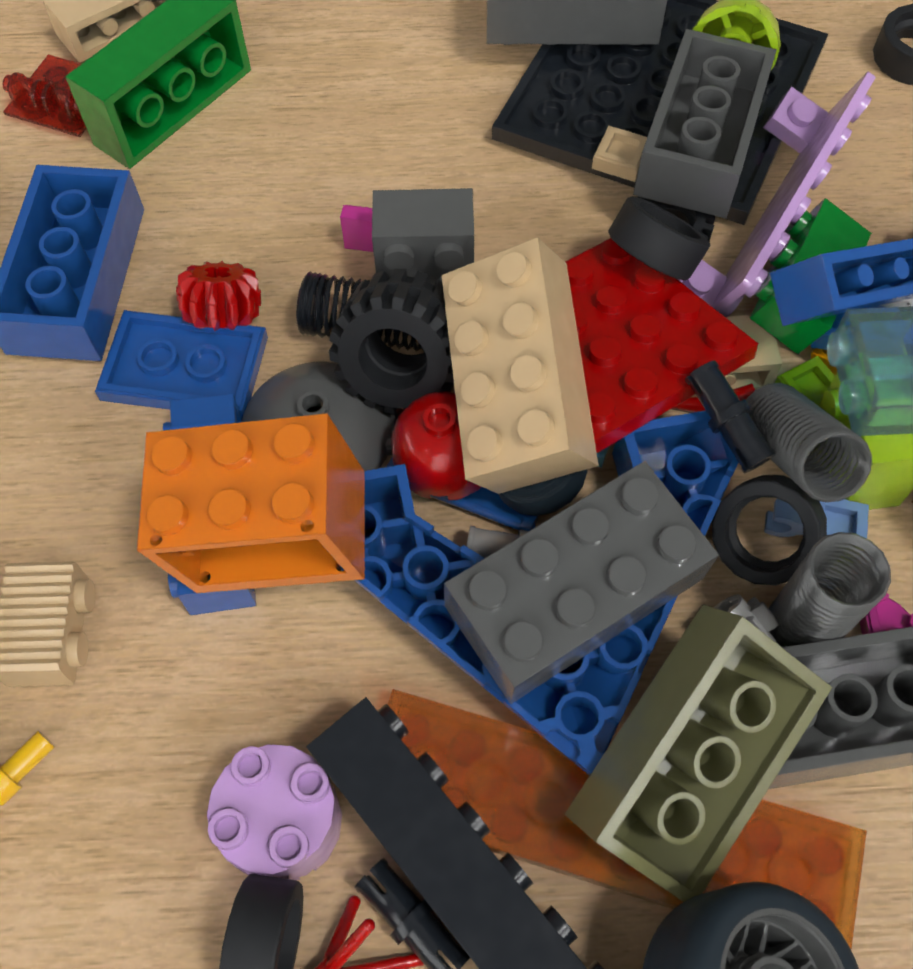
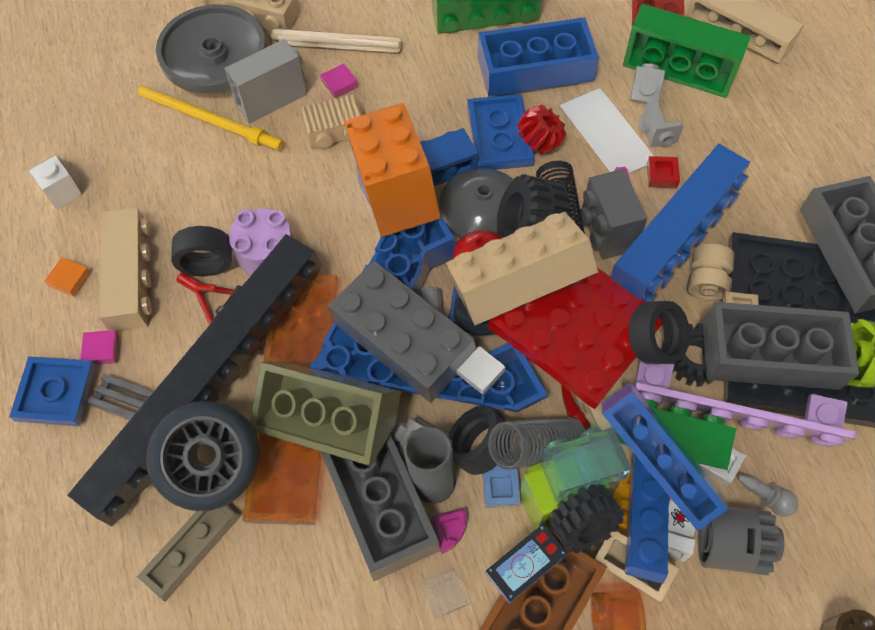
camera: 75 degrees right, 0 degrees up
(189, 142) = (647, 84): none -> light grey bracket
(246, 224) = (607, 131): none -> white sticker
(273, 154) = (655, 128): none -> light grey bracket
(356, 173) = (663, 171): none -> red plate
(455, 146) = (681, 224): none -> blue brick
(549, 165) = (710, 269): none -> tan wheel
(680, 477) = (481, 370): none -> white tile
(730, 416) = (534, 391): black pin -> none
(886, 213) = (780, 501): none -> light grey bar

